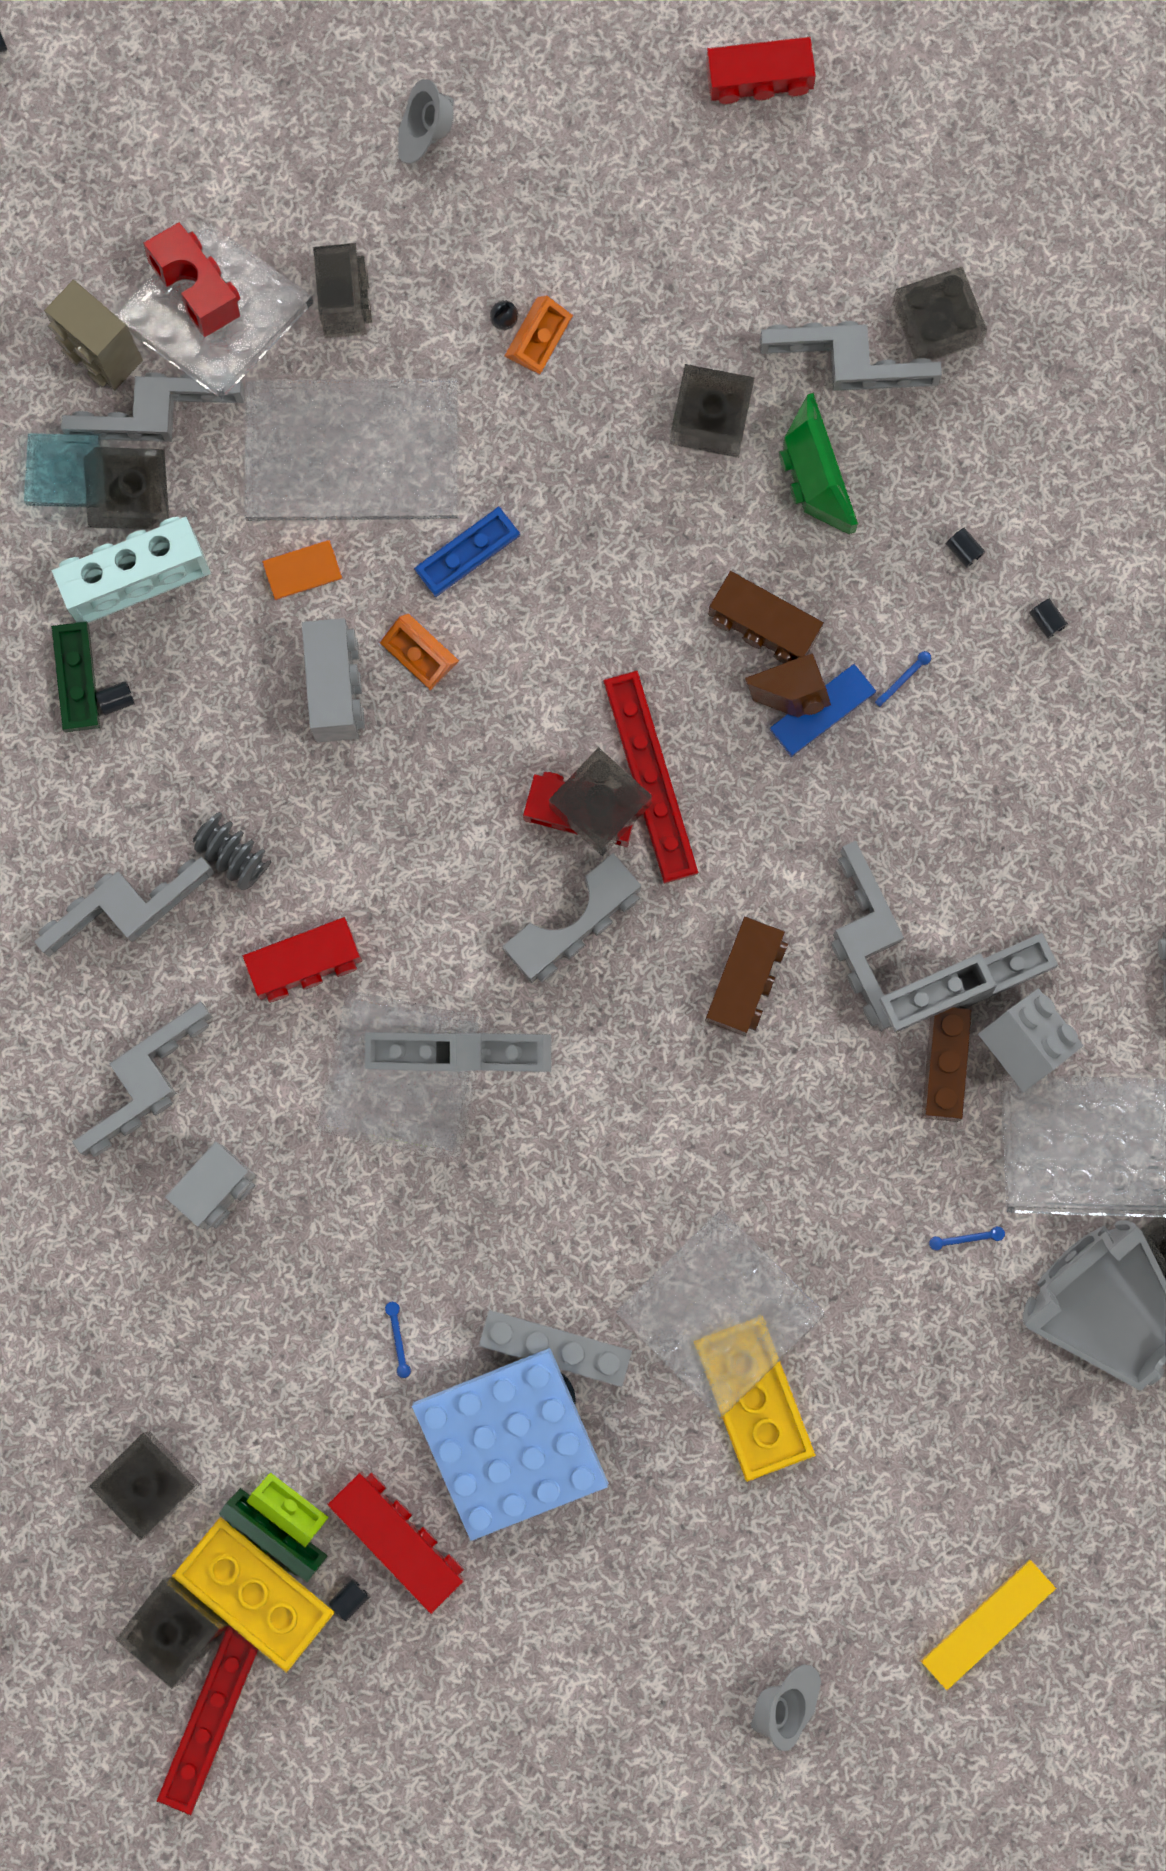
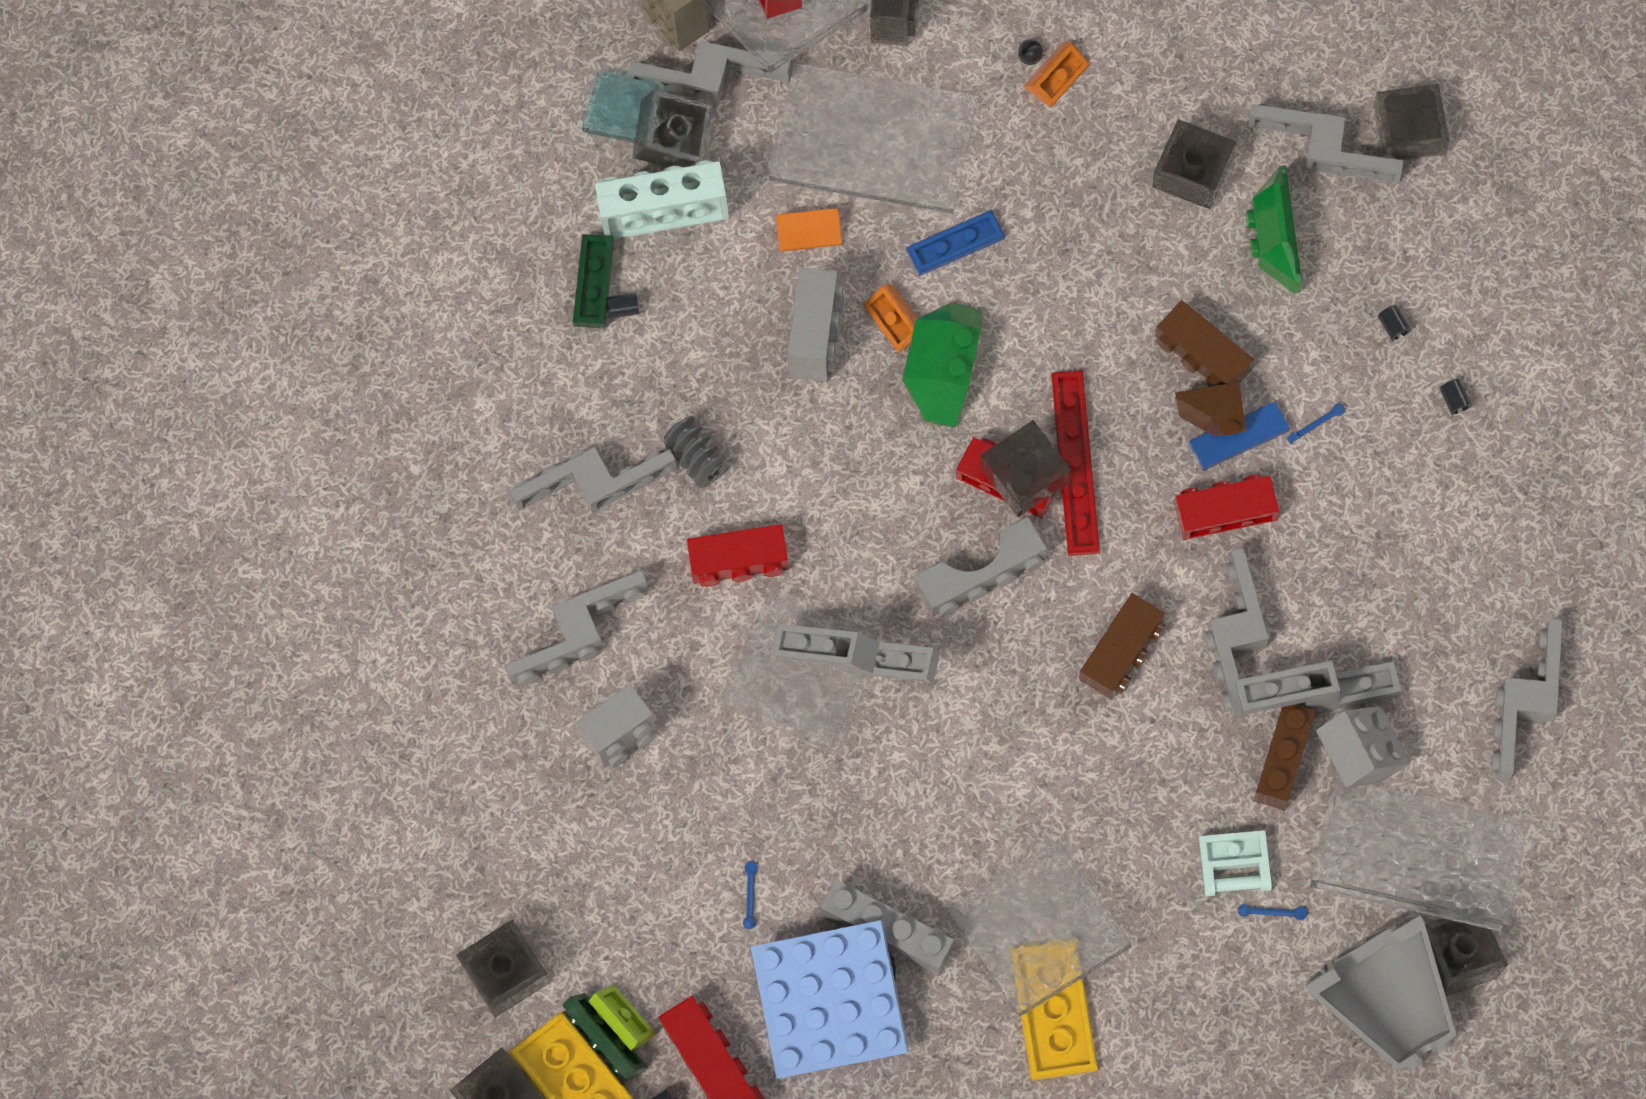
camera: 15 degrees right, 10 degrees down
(482, 691) = (942, 361): none -> green wedge
(826, 794) = (1226, 506): none -> red brick
(912, 1182) = (1234, 852): none -> light aqua plate

